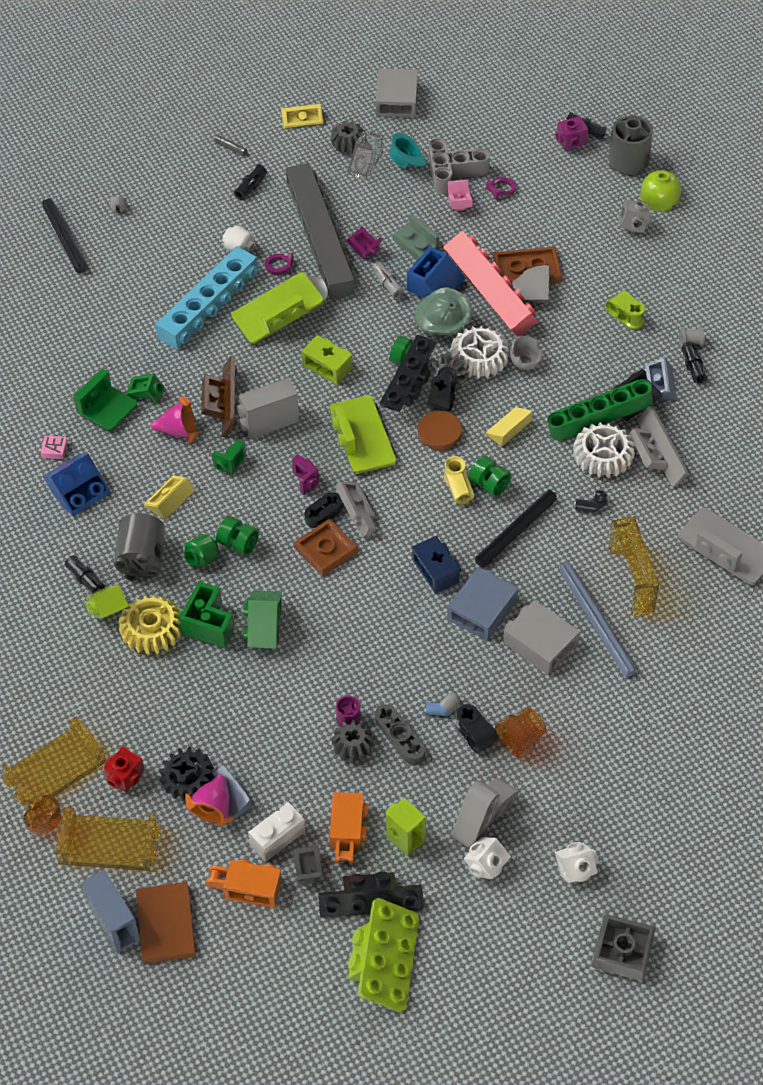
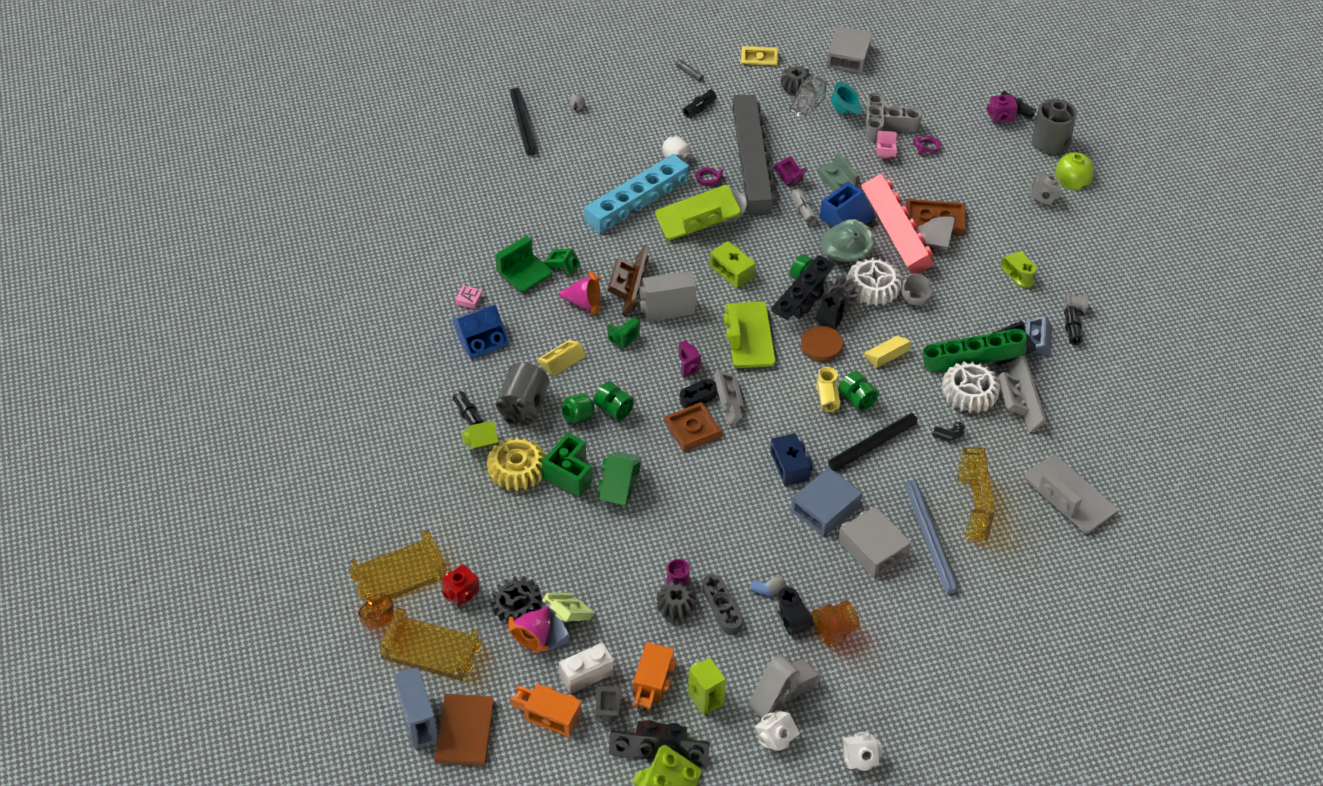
camera: 10 degrees right, 5 degrees down
(242, 771) = (568, 608): none -> yellowish green plate

